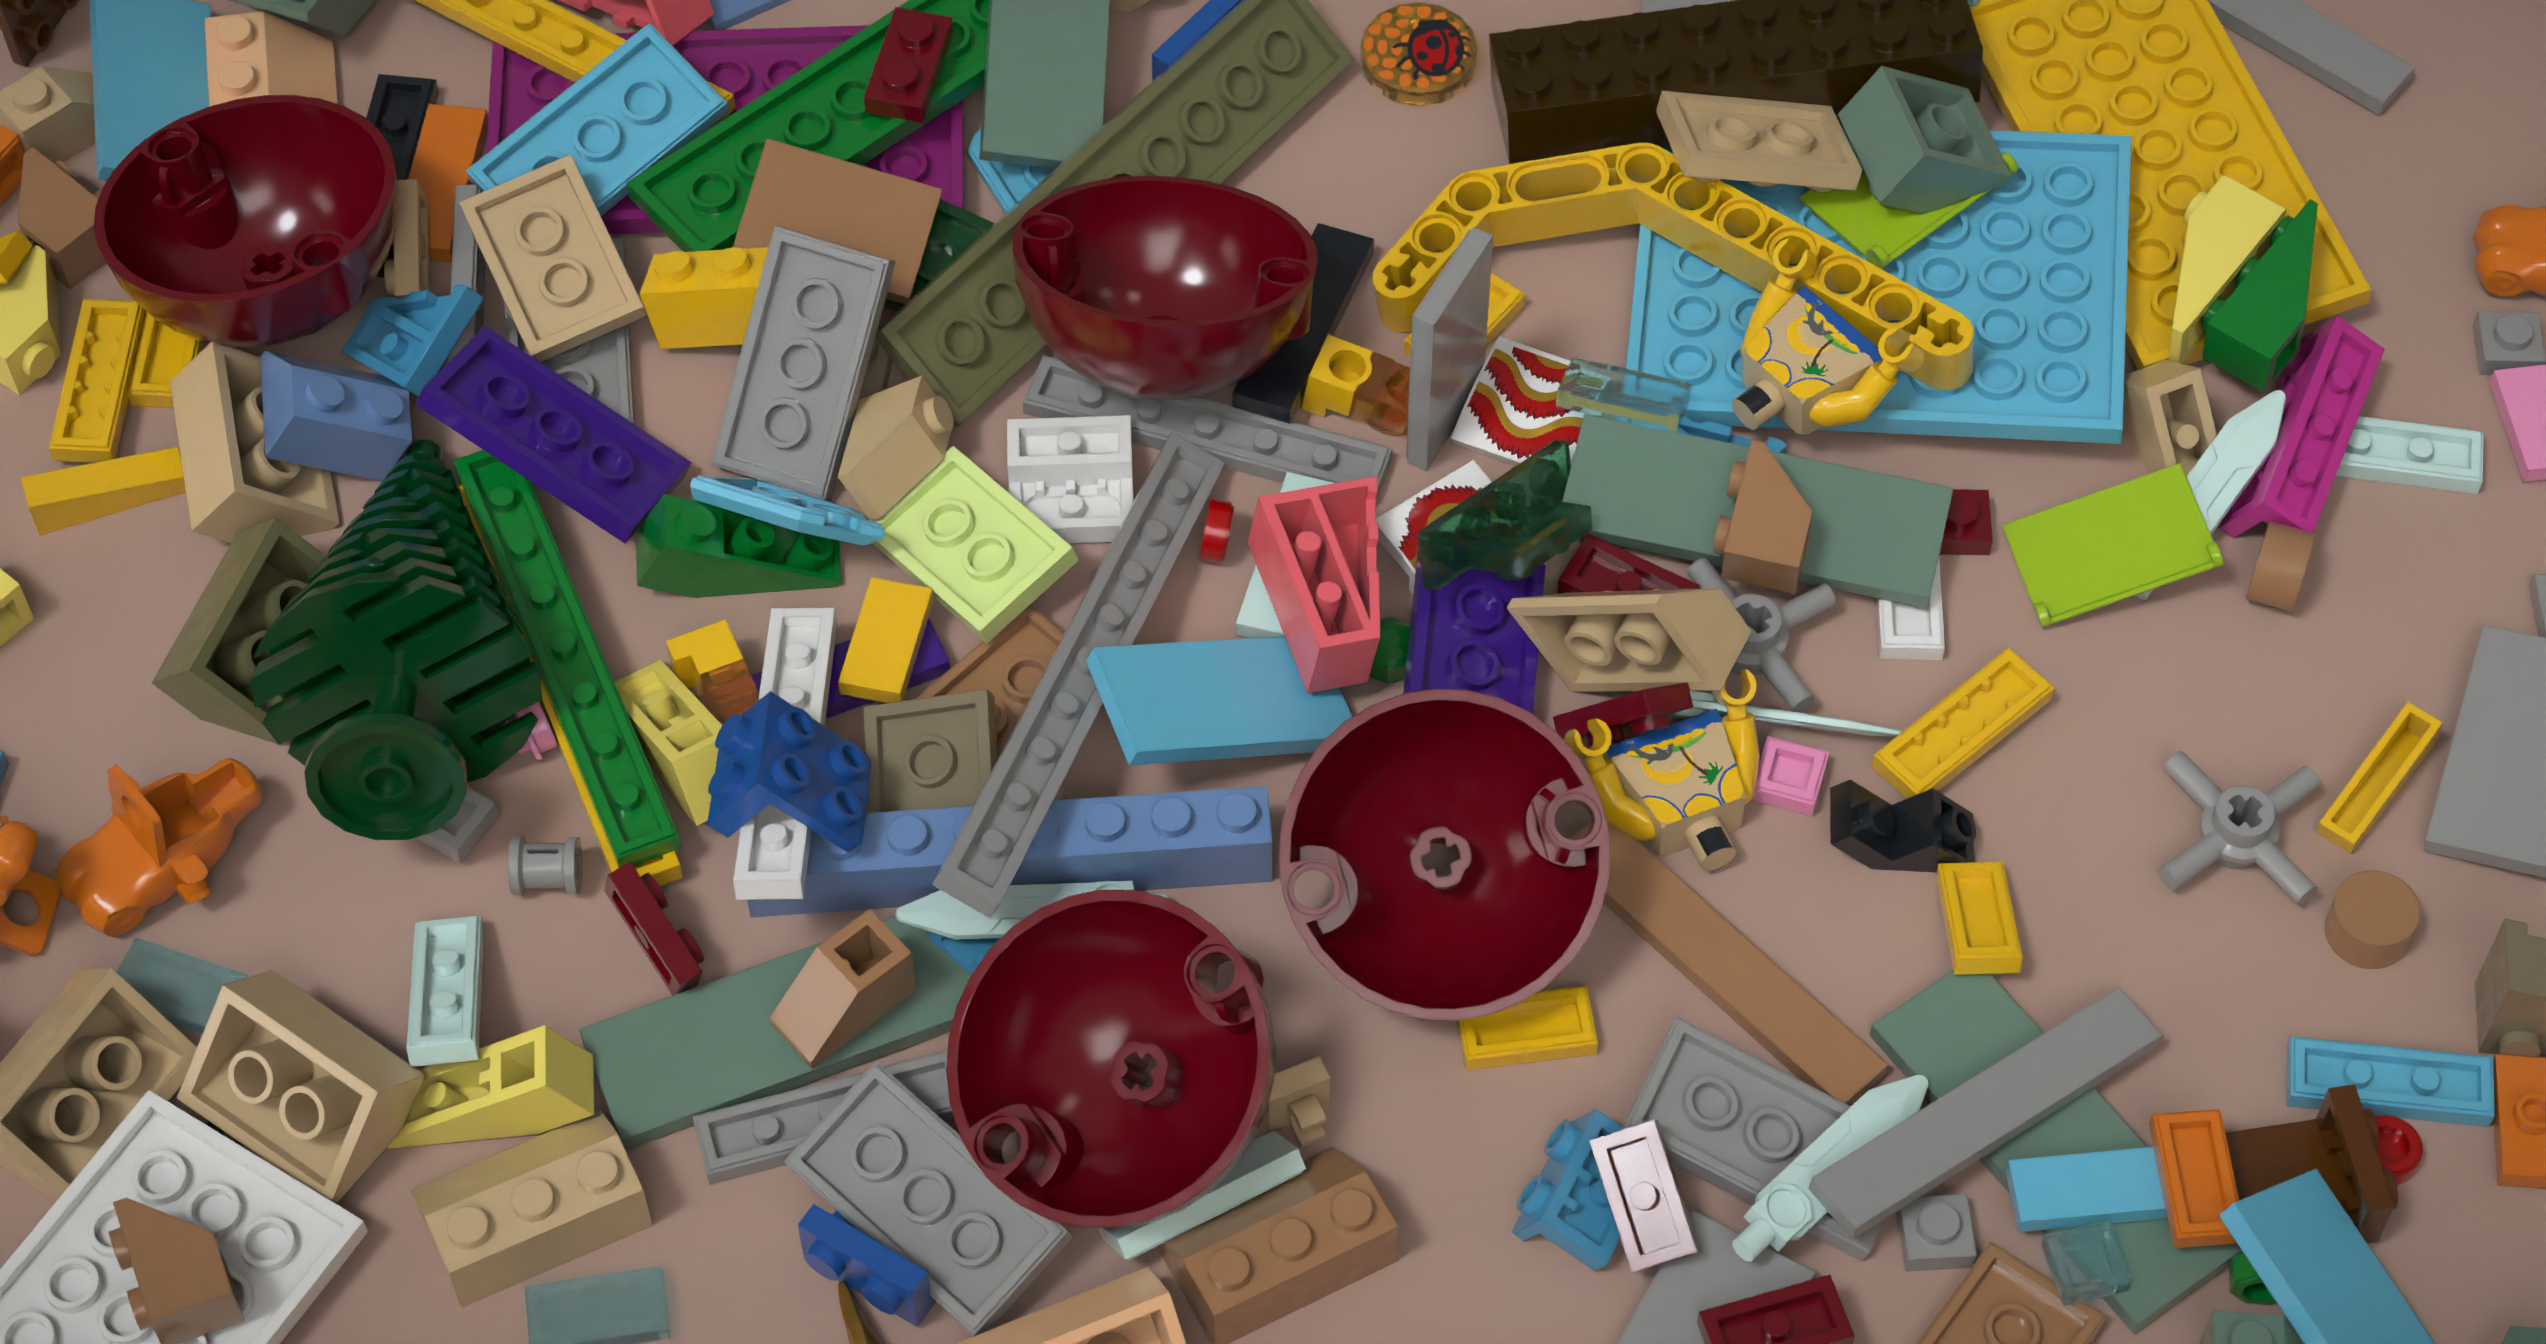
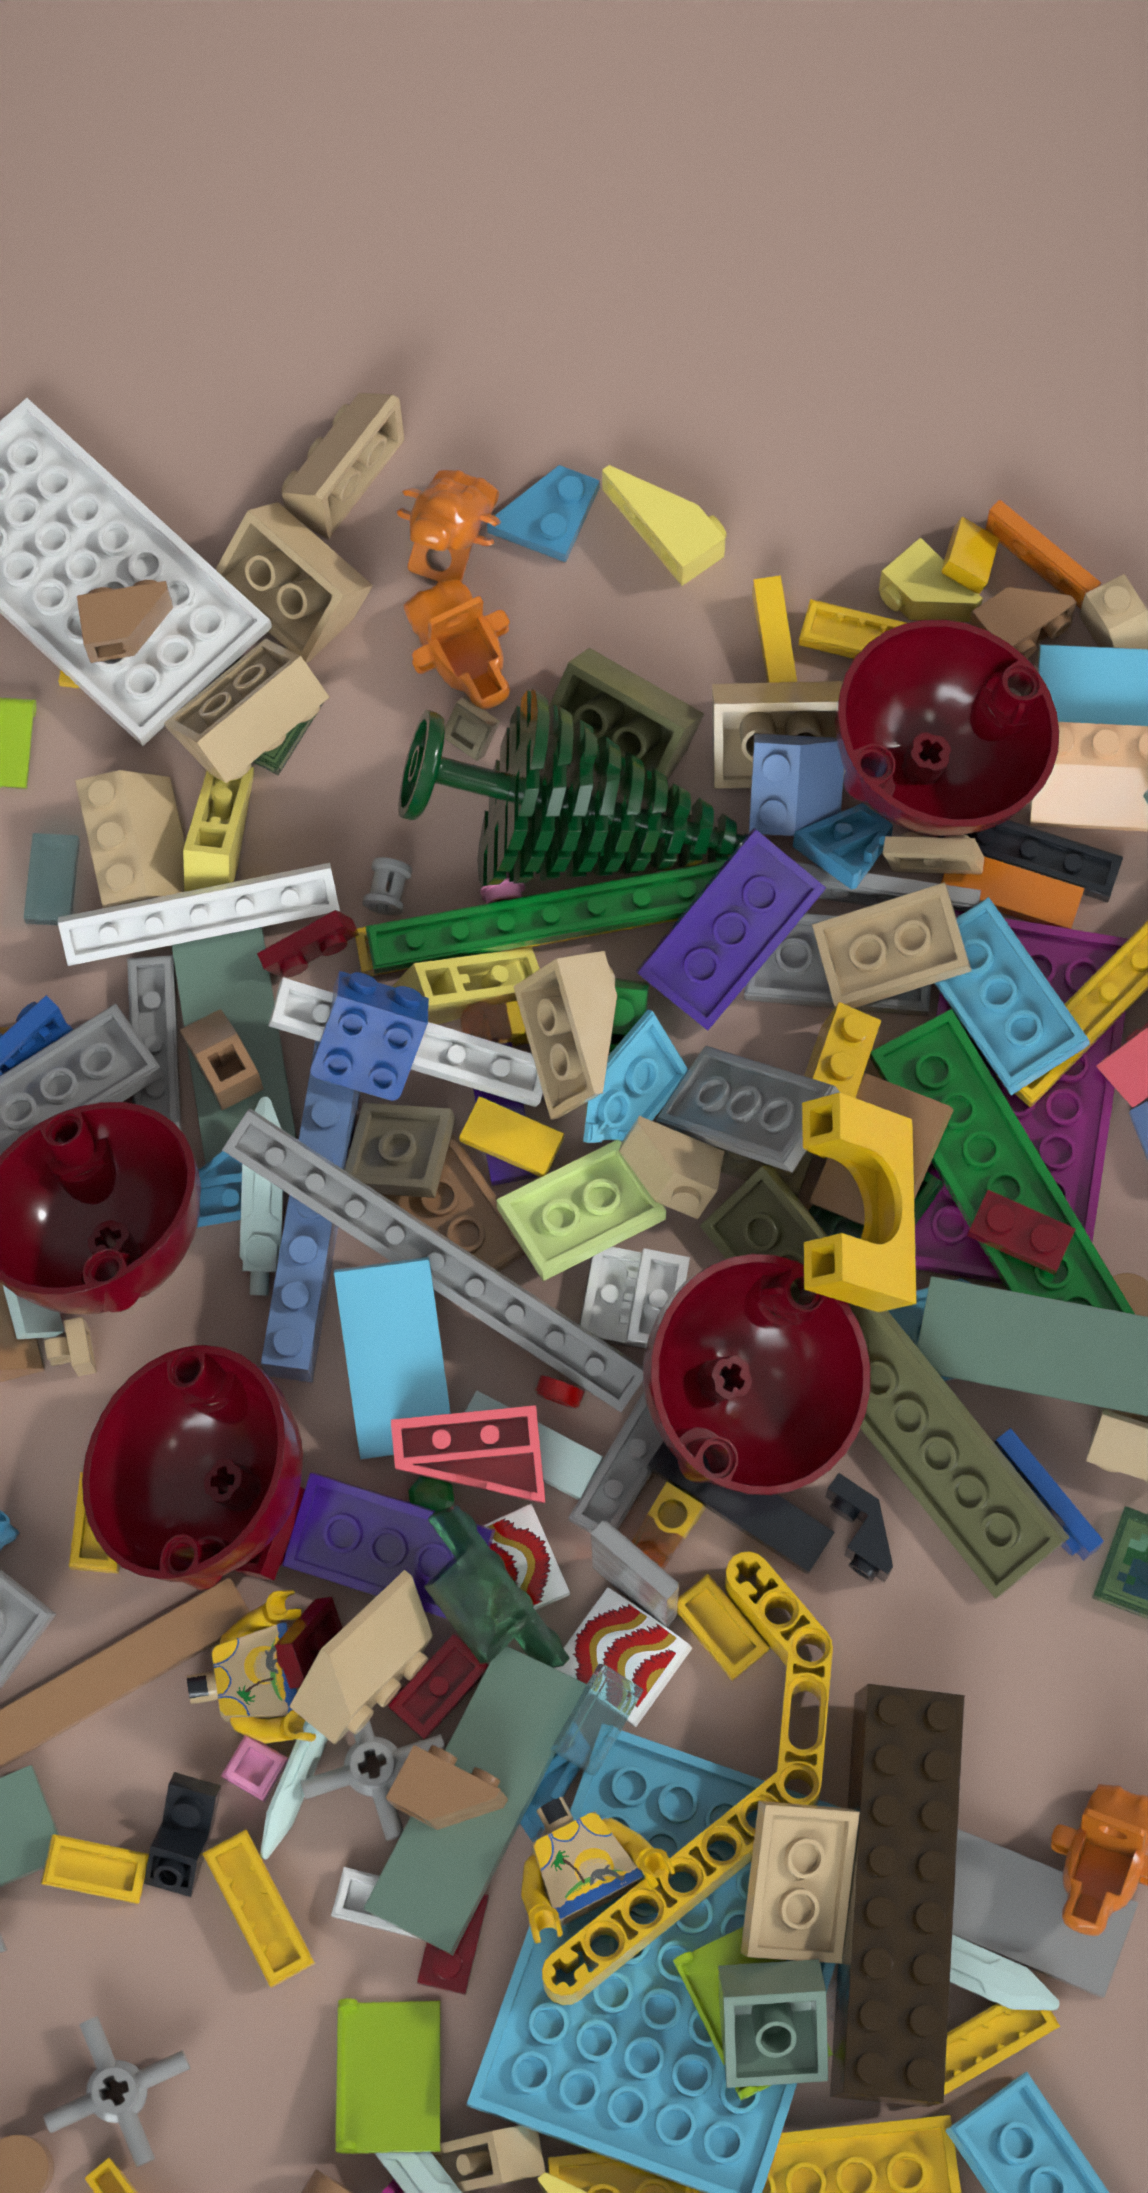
camera: 105 degrees right, 15 degrees up
(175, 982) = (356, 652): clear light blue tile -> none
(286, 811) = (470, 728): none -> dark tan tile
(445, 991) = (297, 808): light aqua tile -> none
(465, 829) = (441, 831): light grey plate -> none
(633, 1077) = (198, 914): none -> white plate
(741, 557) = (569, 1027): none -> tan slope
(983, 165) = (878, 1153): none -> yellow arch
(1318, 181) = (870, 1546): none -> black slope
(1418, 53) = (997, 1654): tile -> none

